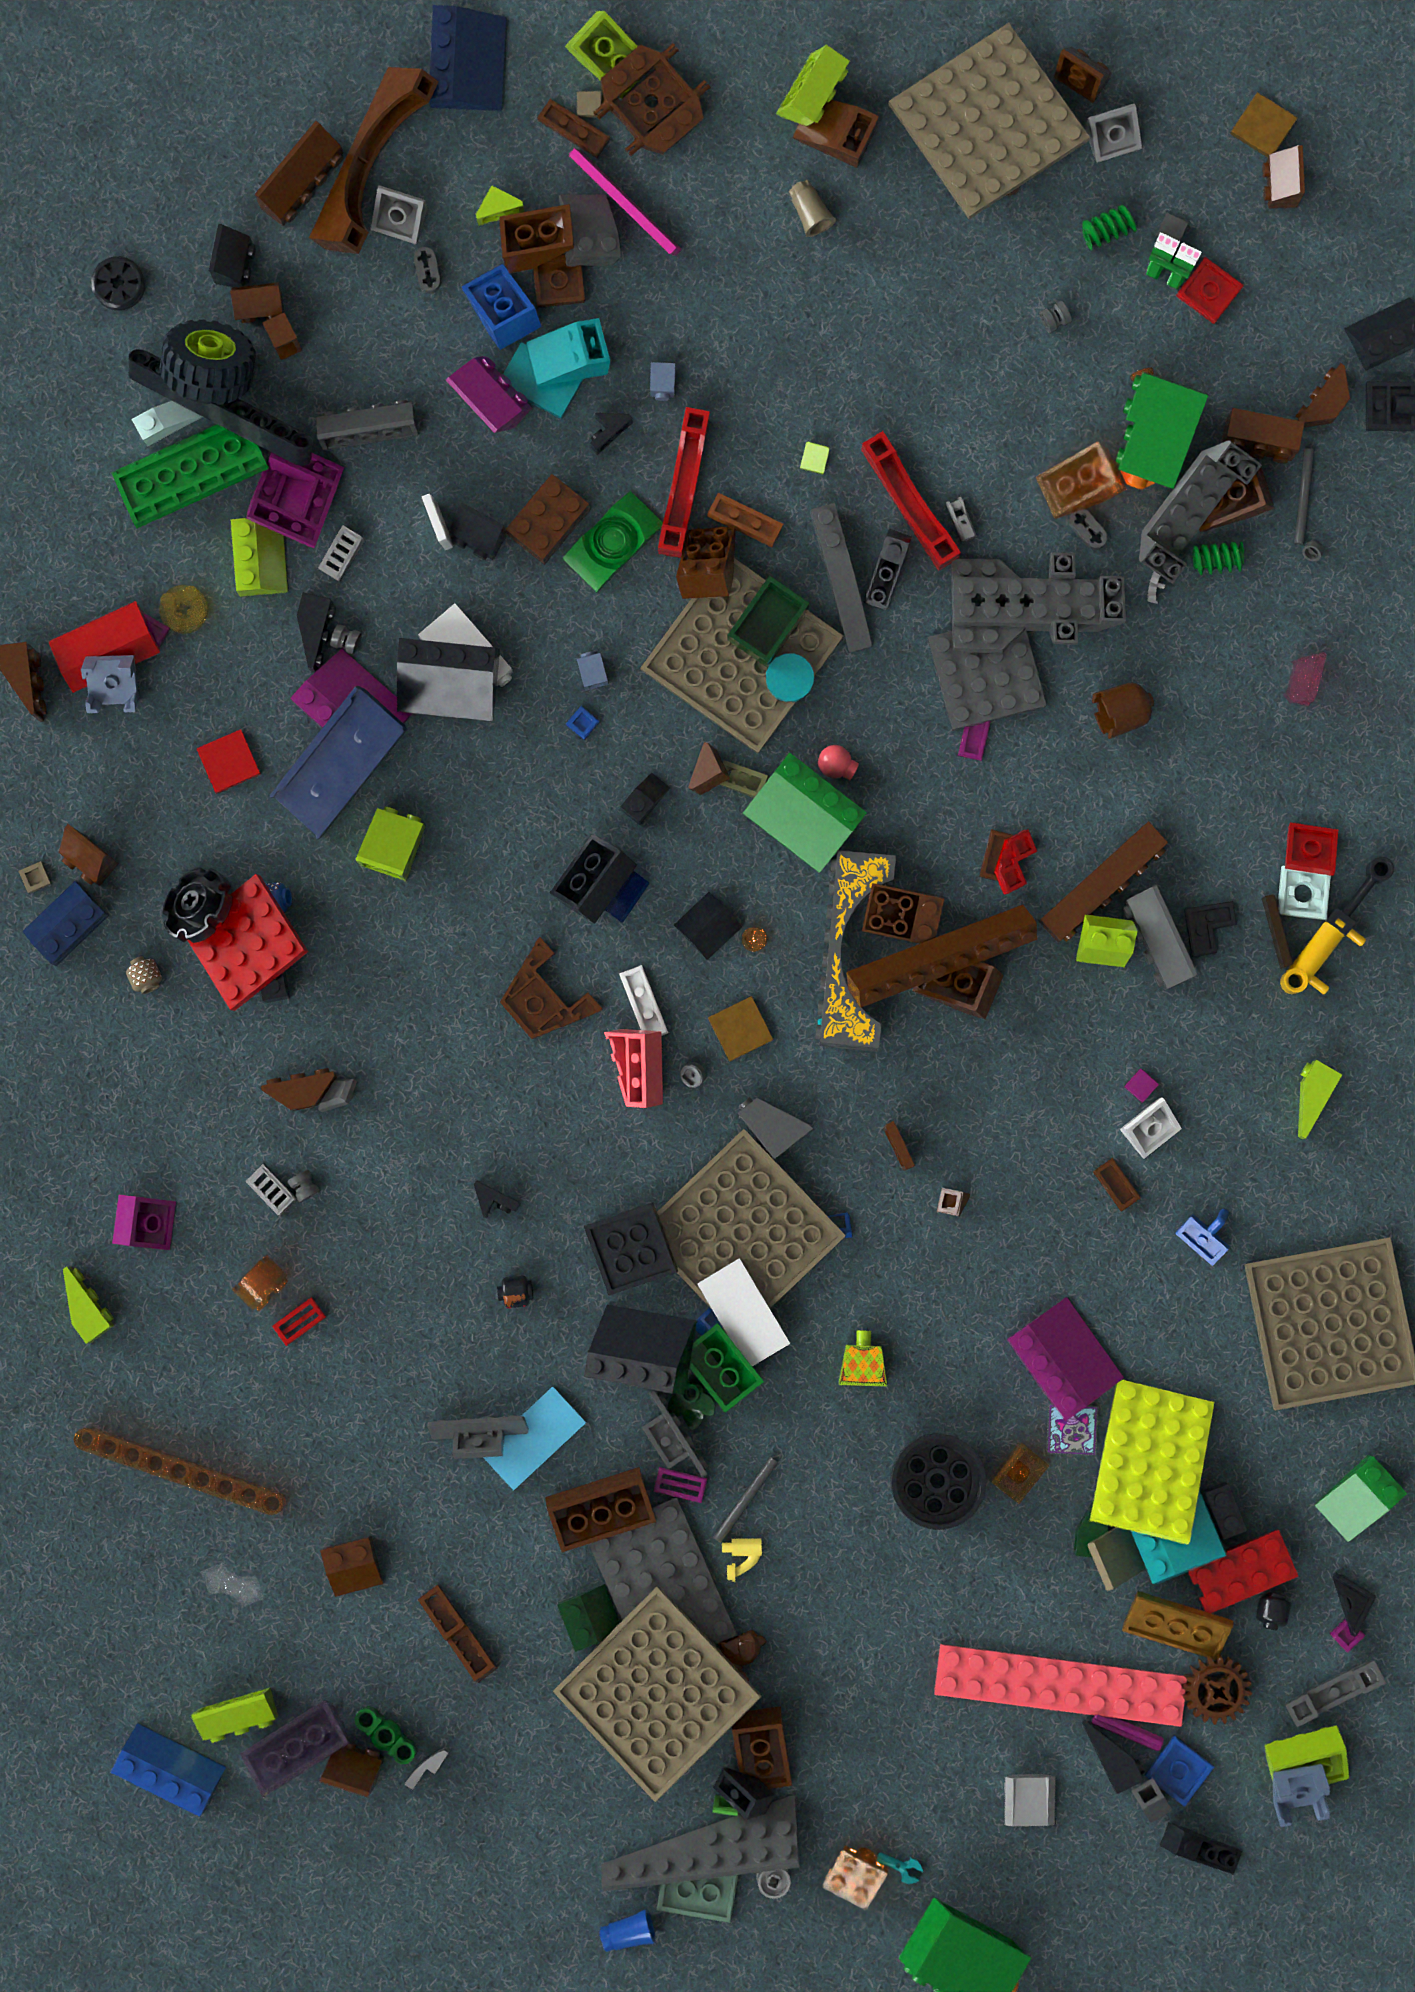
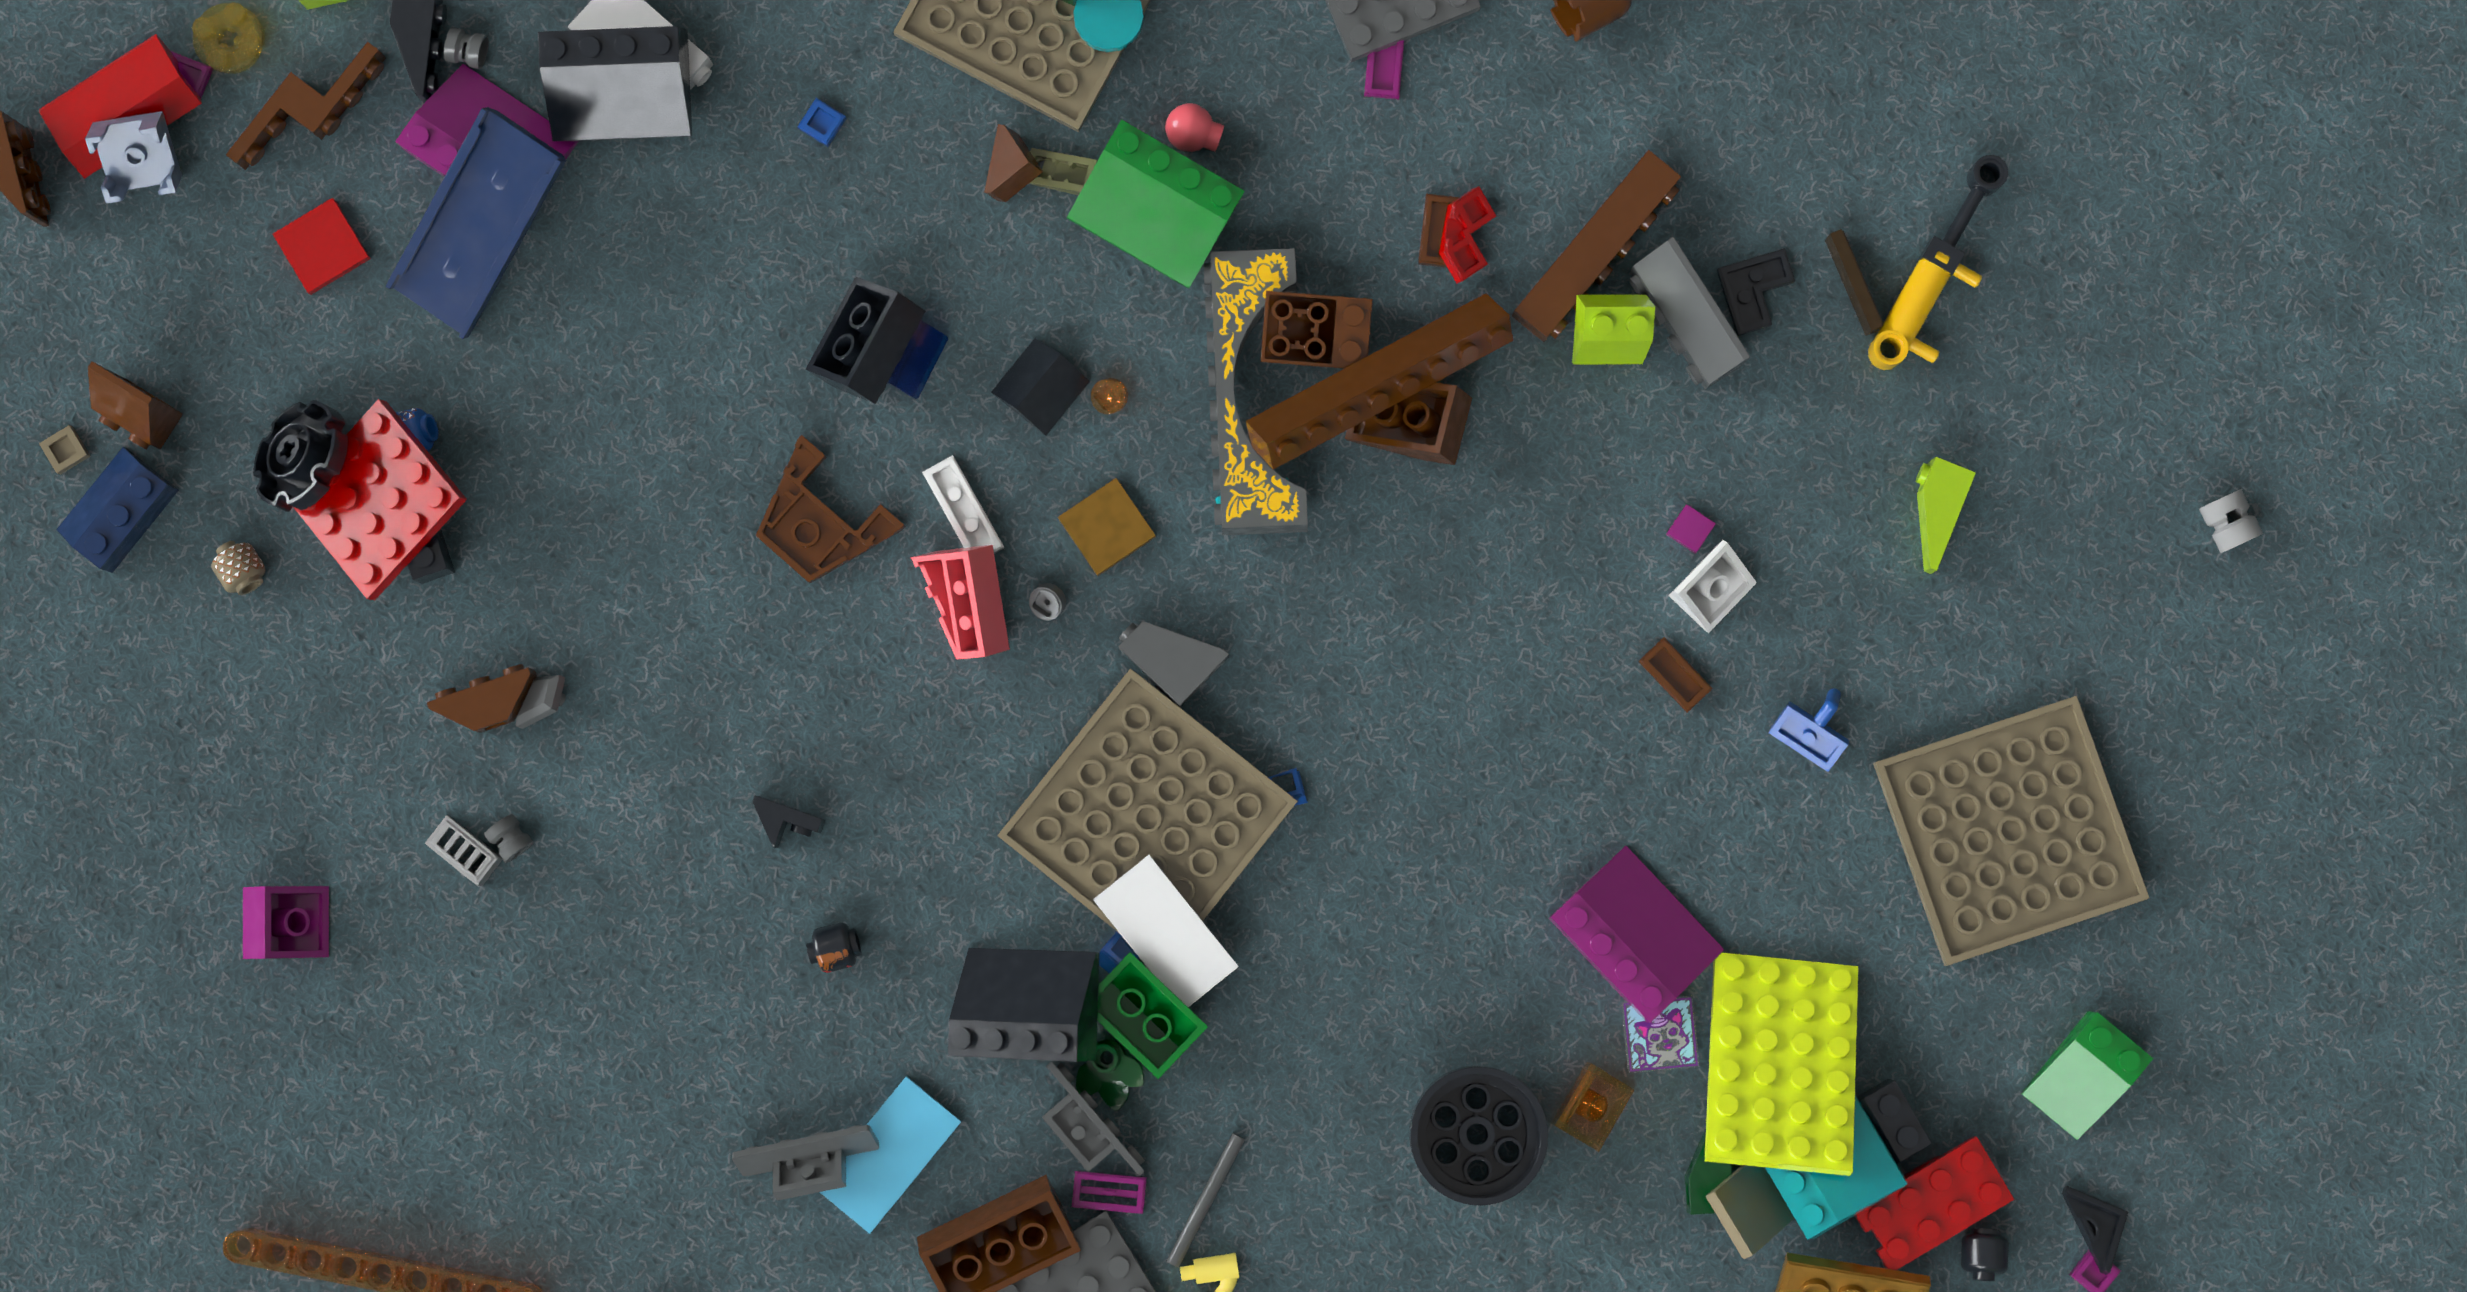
camera: 10 degrees left, 0 degrees up
(85, 1312) = (216, 1062): lime slope -> none
(232, 664) = (307, 106): none -> reddish brown bracket
(260, 1283) = (462, 985): clear orange brick -> none
(316, 1308) = (551, 1012): red tile -> none
(391, 843) = (568, 330): lime slope -> none
(592, 670) = (825, 46): sand blue brick -> none
(631, 1248) = (991, 862): black plate -> none
(644, 798) = (924, 217): black slope -> none
(863, 1363) = (1347, 980): torso -> none
(898, 1146) = (1355, 662): reddish brown tile -> none
(952, 1201) = (1444, 732): slope -> none
(1311, 849) = (1886, 158): red plate -> none
(1318, 903) = (1901, 204): light aqua piece -> none

